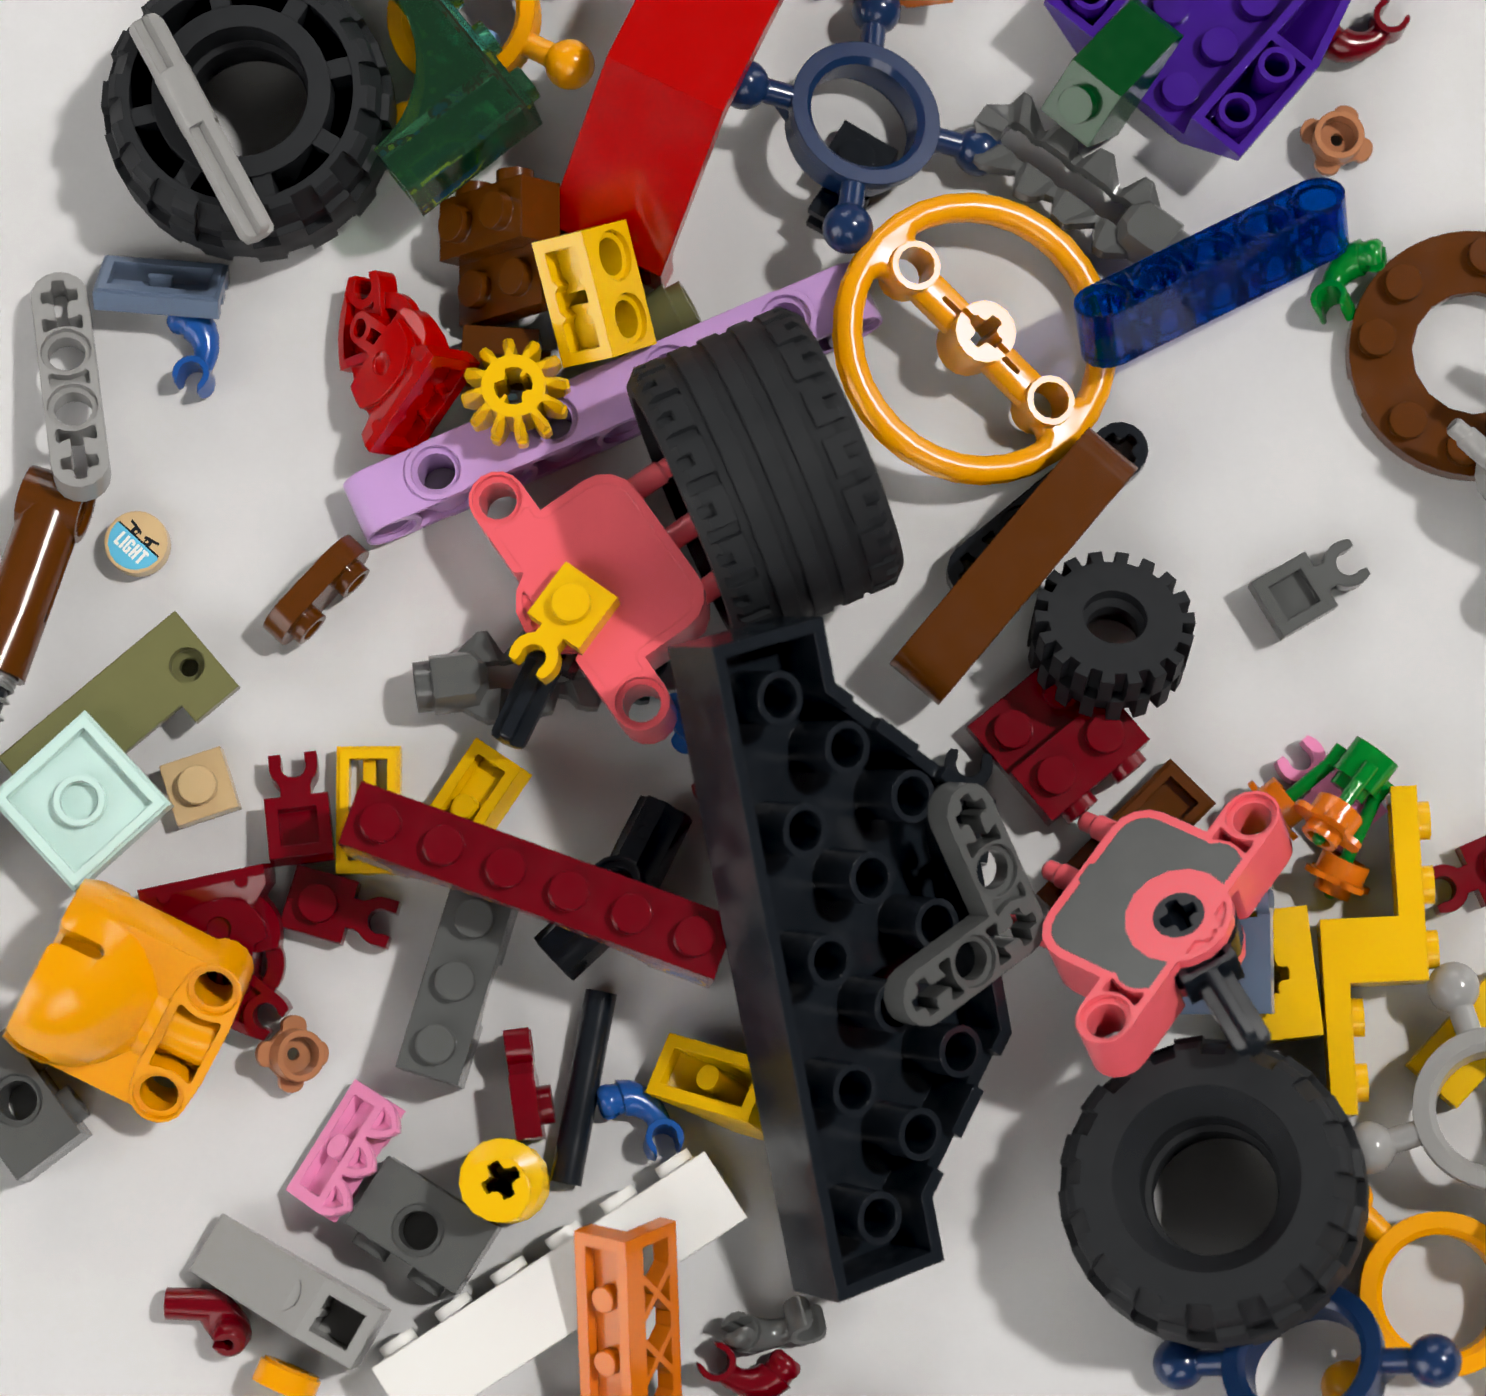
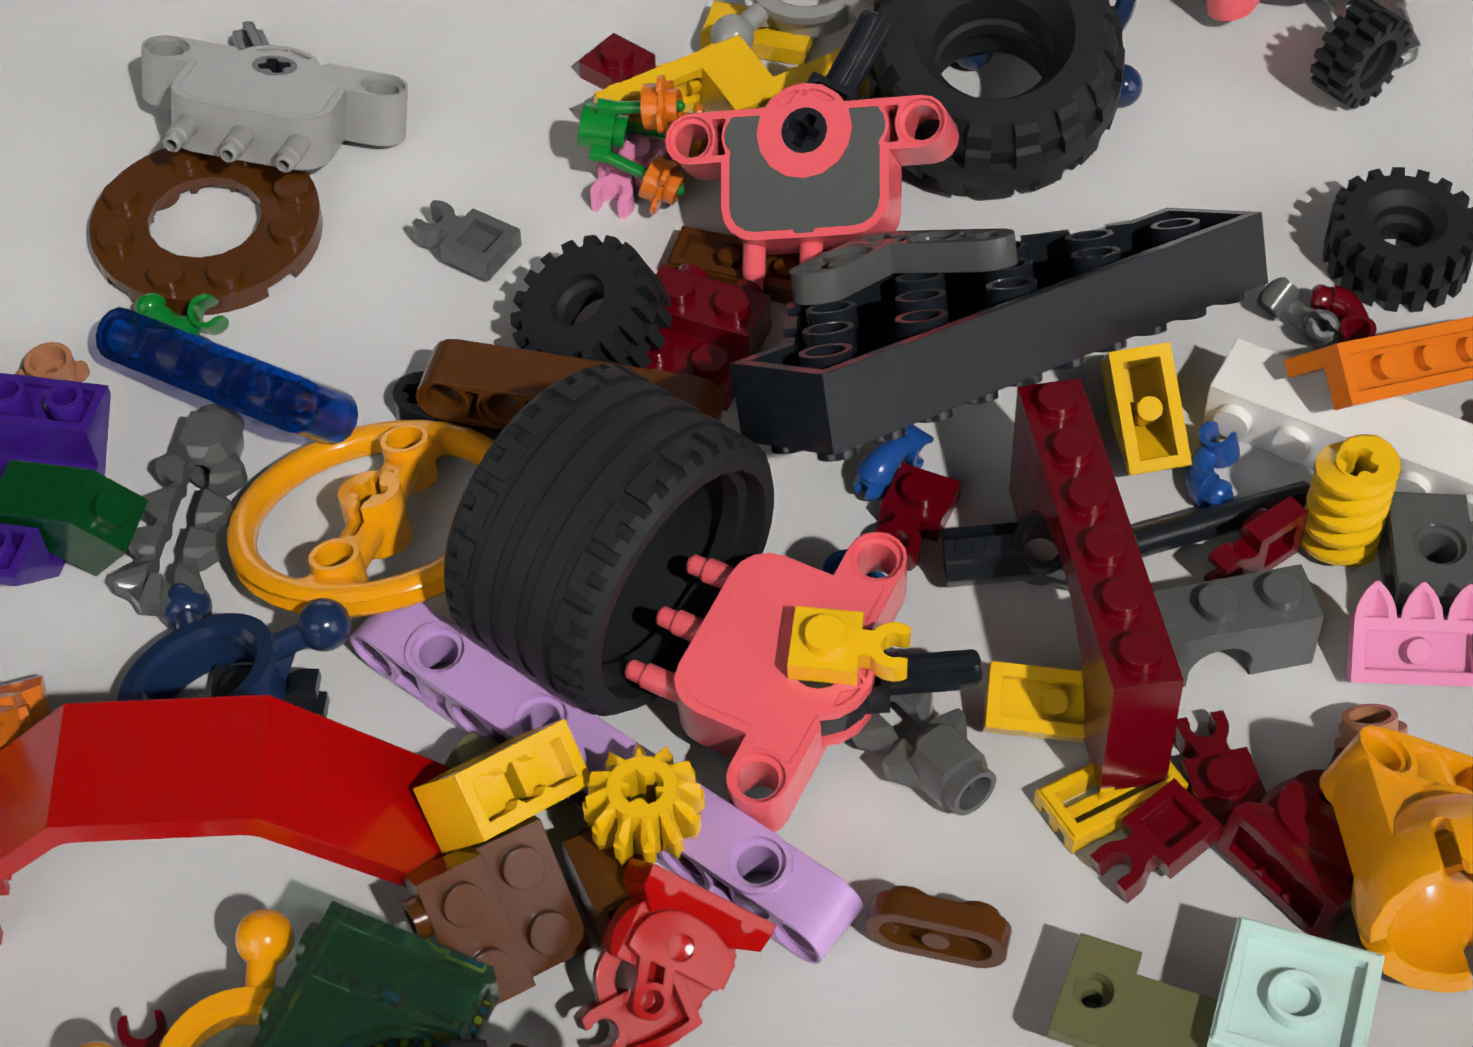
camera: 120 degrees left, 30 degrees down
(200, 787) = (1191, 944): tan plate -> none

